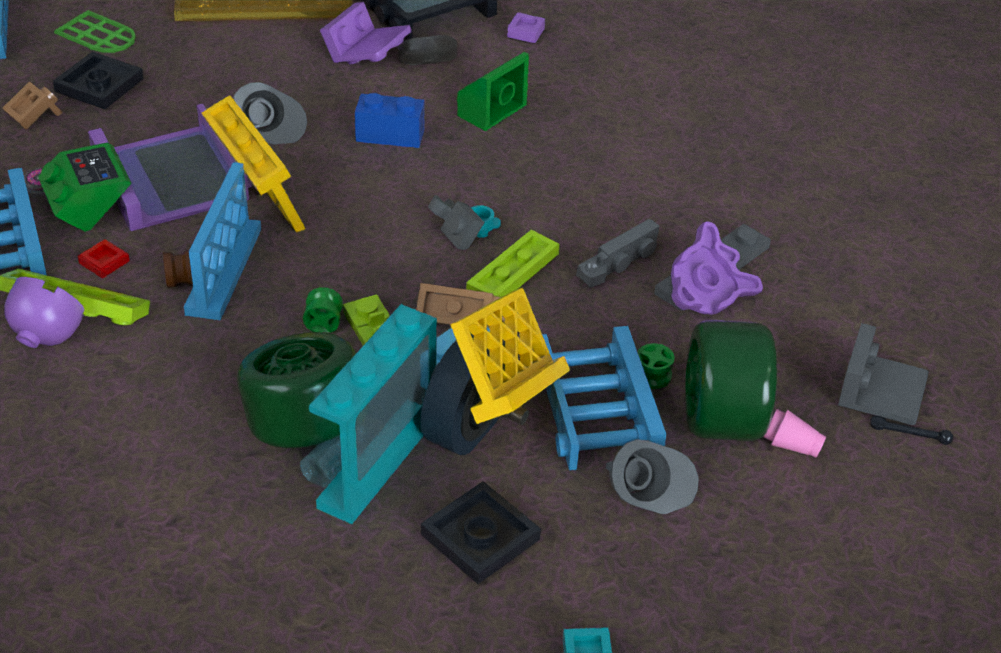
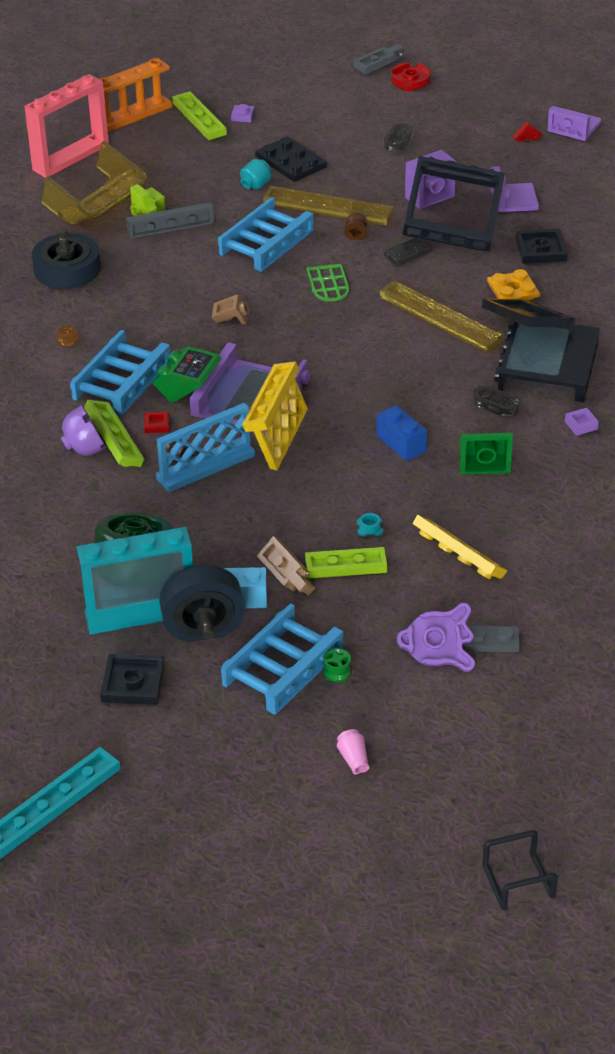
camera: 50 degrees right, 0 degrees up
(98, 80) = (284, 313): black plate -> none
(274, 109) = (337, 379): dark grey piece -> none
(322, 310) = (214, 519): green wheel -> none
(354, 38) = (460, 367): medium lavender bracket -> none
(365, 316) = (232, 545): lime plate -> none
(460, 222) = (352, 516): dark grey plate -> none
(521, 378) = (210, 612): yellow fence -> none
(608, 189) = (466, 553): none -> yellow plate
(619, 253) = (414, 592): dark grey hinge -> none
(661, 473) = (239, 702): dark grey piece -> none
(730, 380) = (339, 691): dark green wheel -> none
(879, 423) = (417, 784): black hinge -> none
(881, 384) = (444, 759): dark grey bracket -> none

